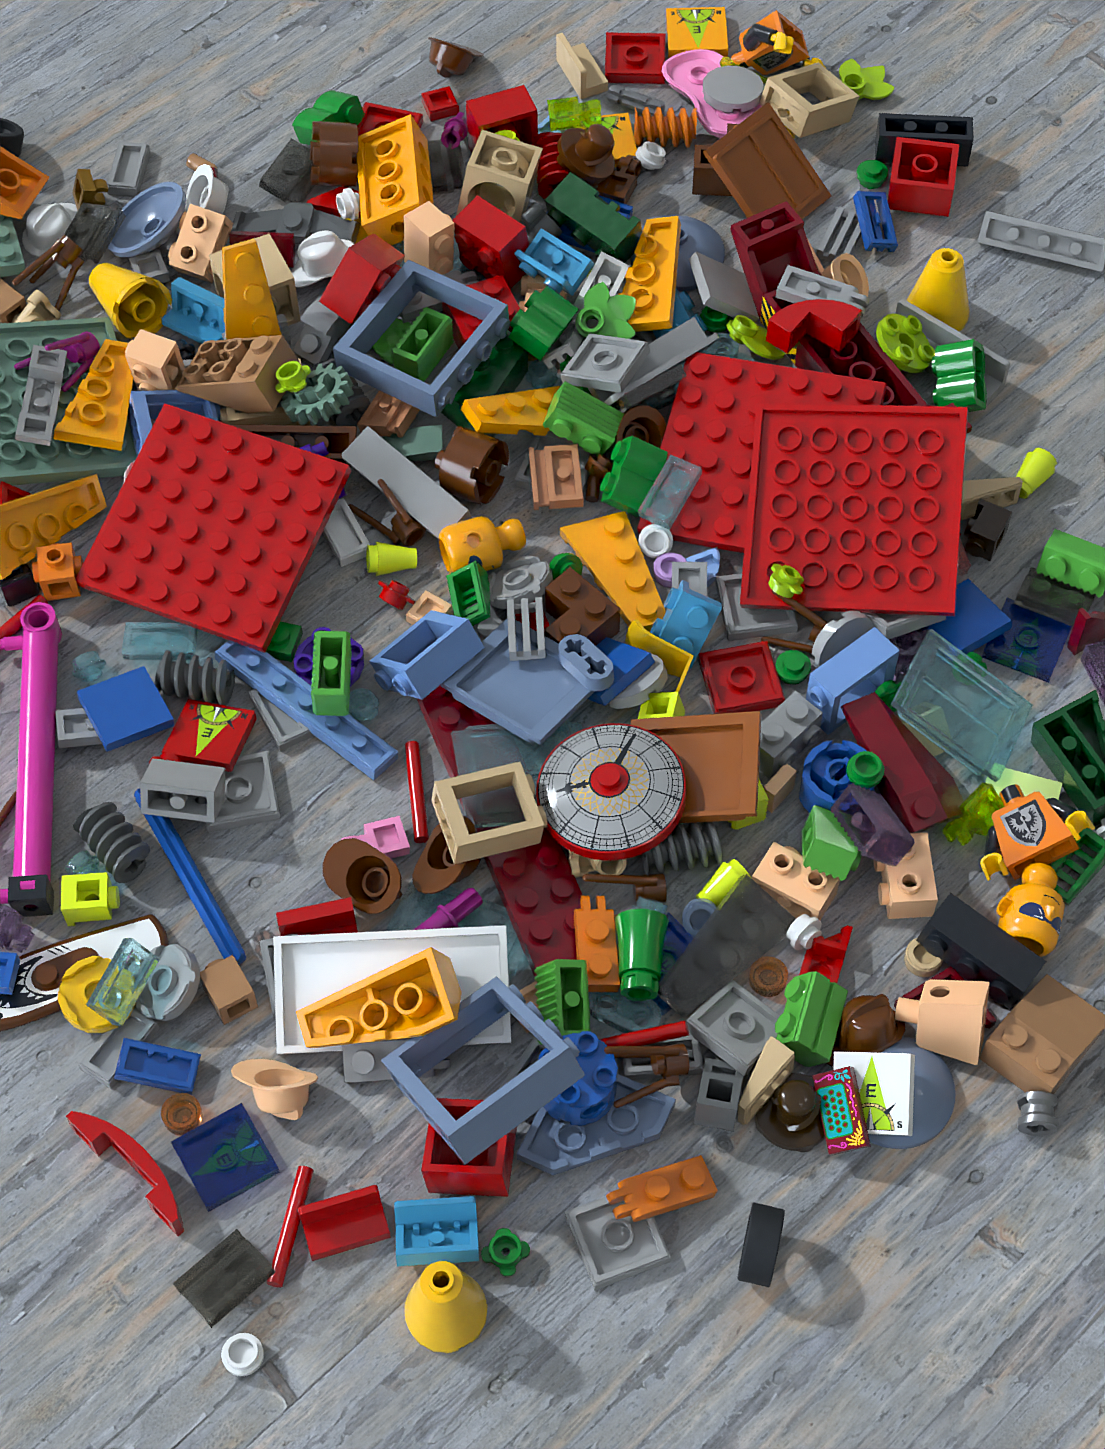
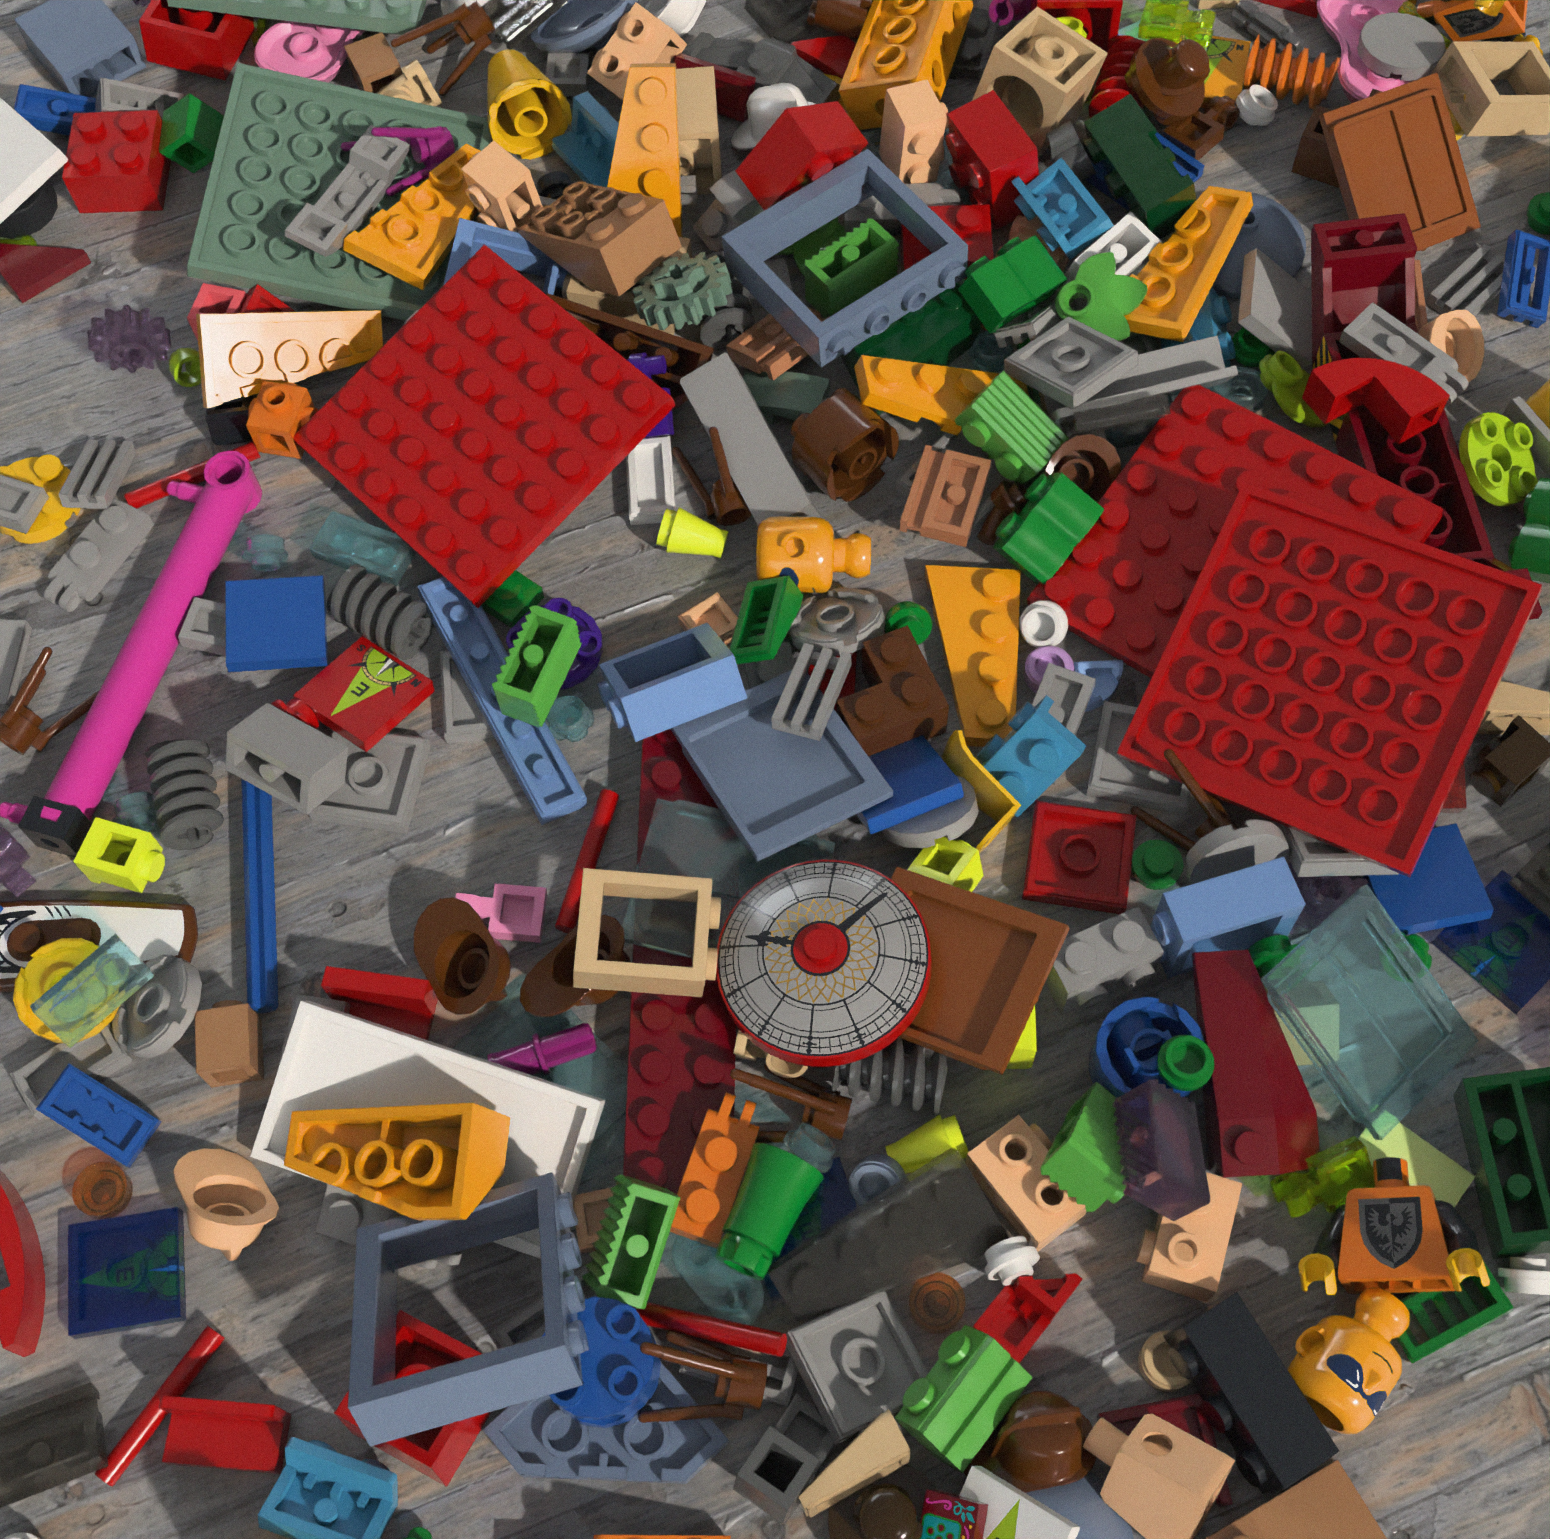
camera: 25 degrees right, 5 degrees up
(292, 377) = (653, 258): lime plate -> none
(348, 204) = (837, 59): white plate -> none
(395, 594) = (675, 585): red plate -> none
(591, 658) = (875, 764): sand blue beam -> none
(670, 492) = (1084, 565): clear light blue plate -> none
(780, 786) = (1063, 1033): light nougat tile -> none
(785, 581) = (1187, 745): lime plate -> none

